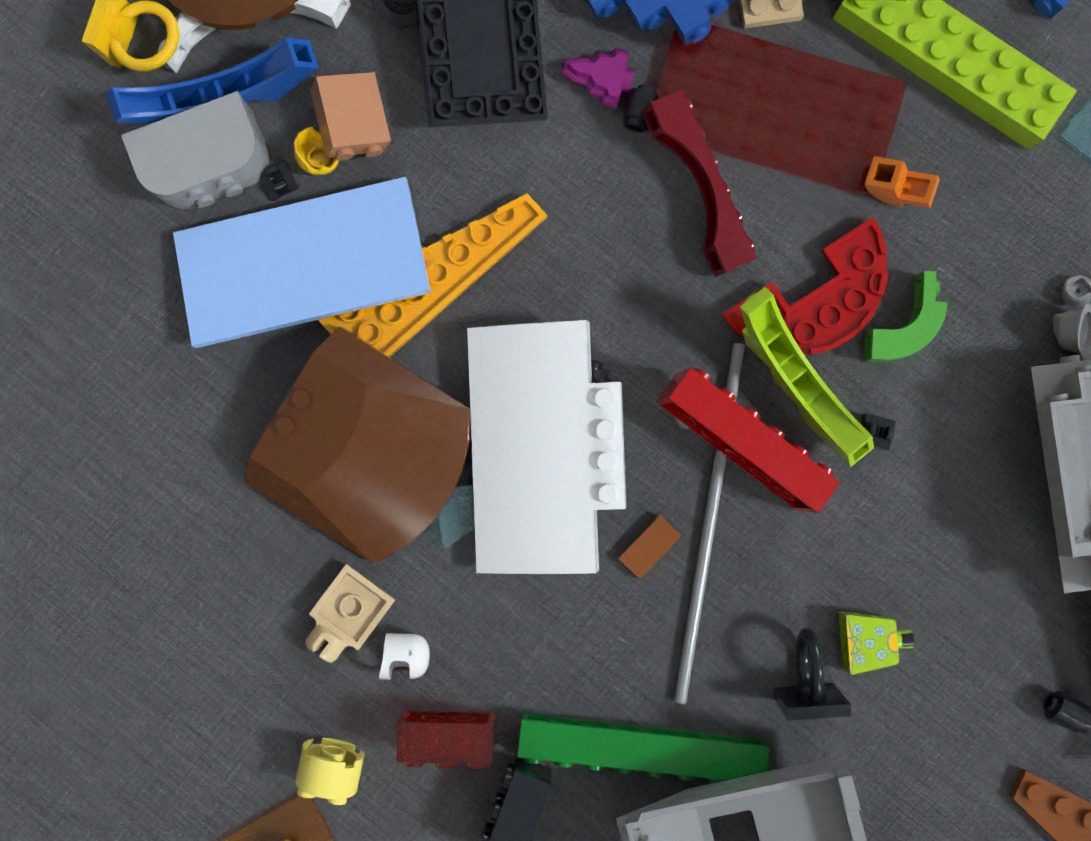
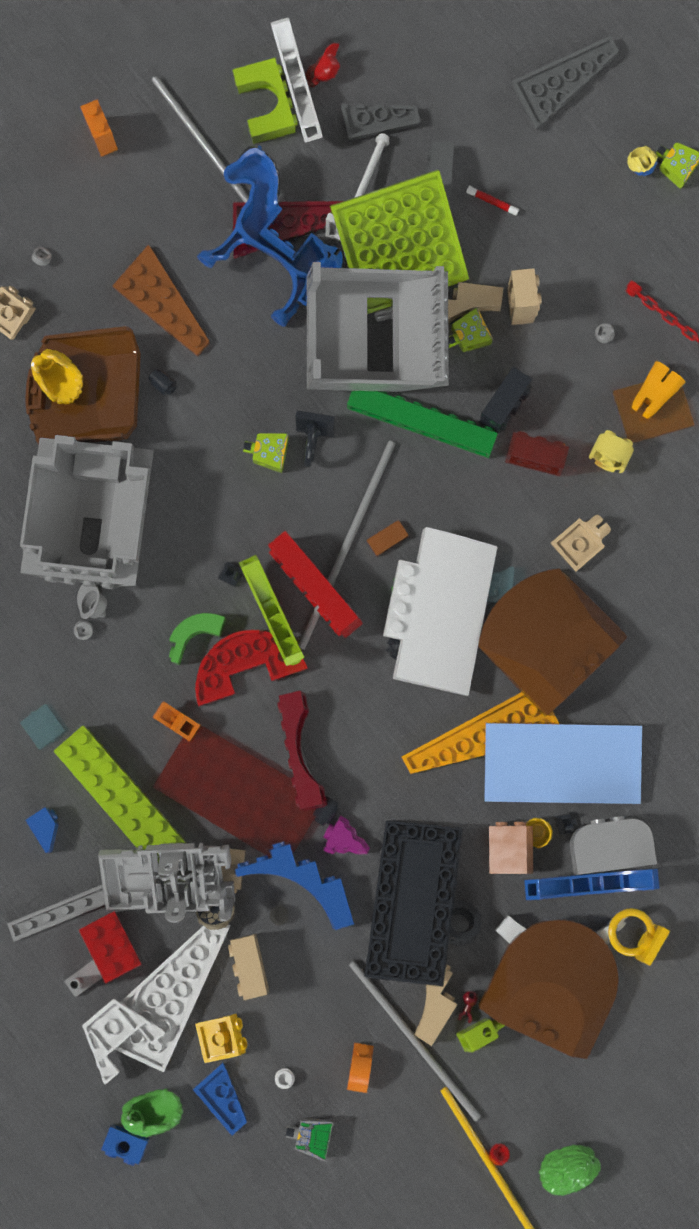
camera: 165 degrees left, 5 degrees down
(404, 651) = (551, 511): white helmet -> none

